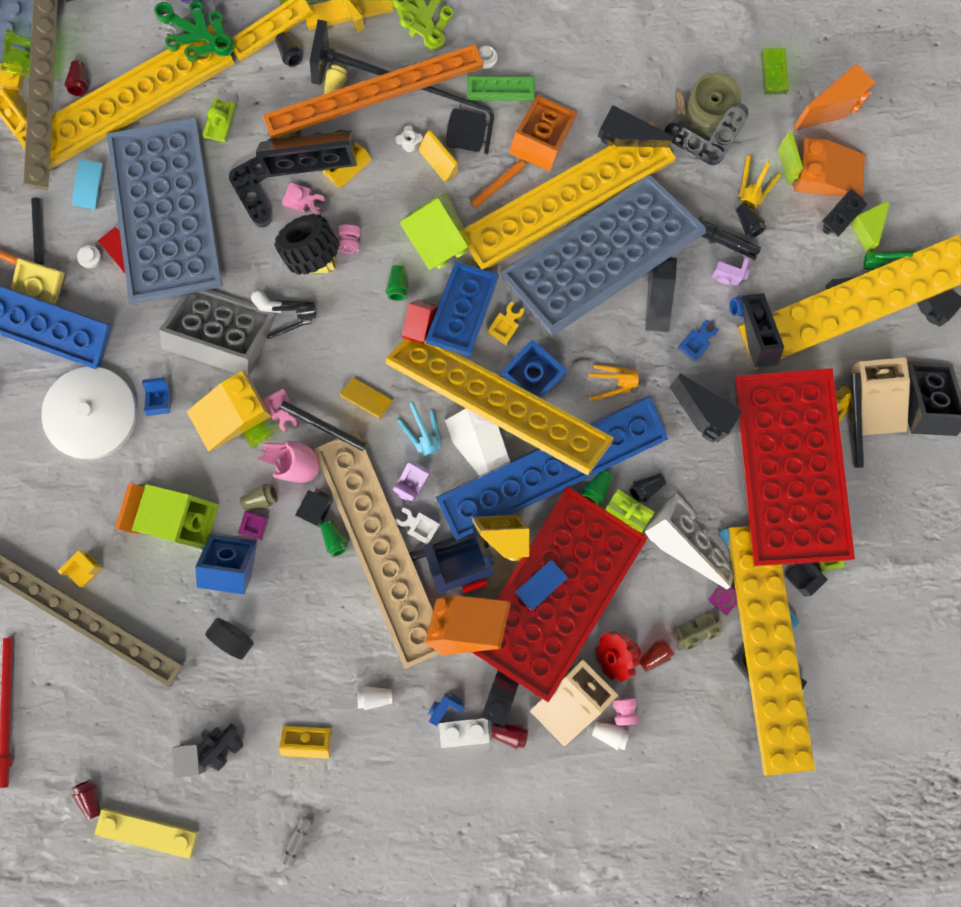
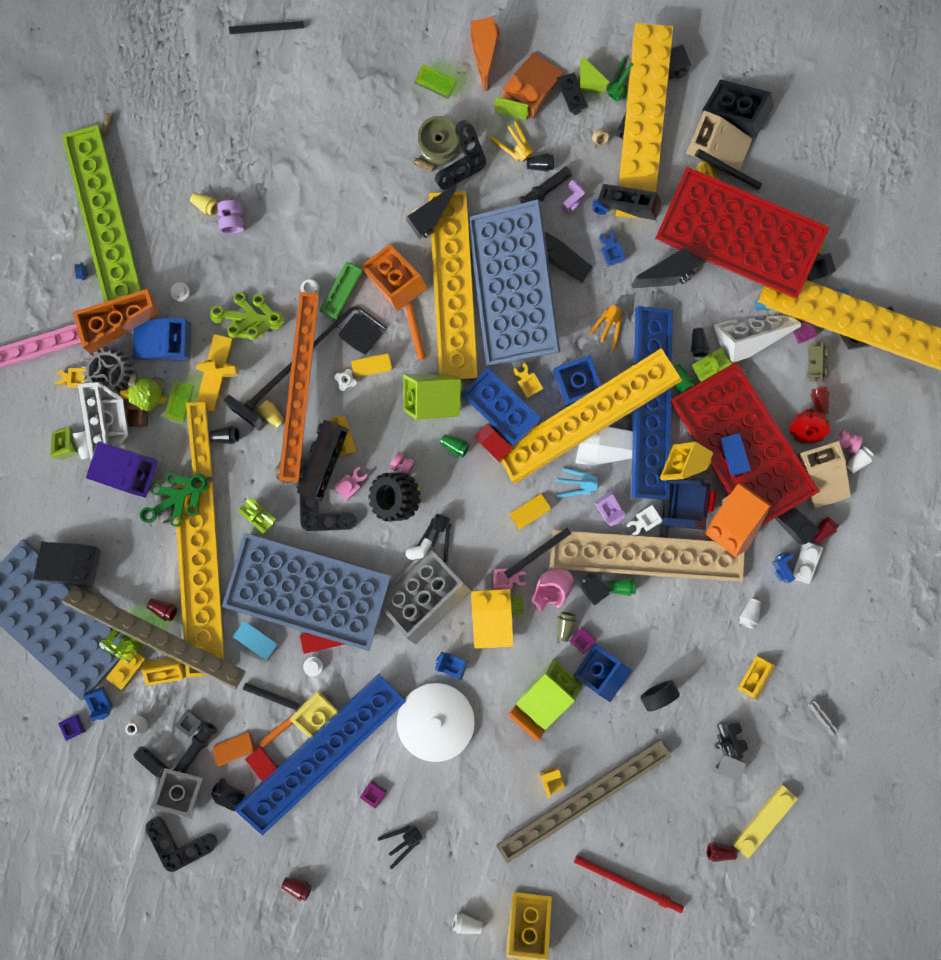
camera: 60 degrees left, 5 degrees up
(809, 269) = (598, 140): none -> tan hinge

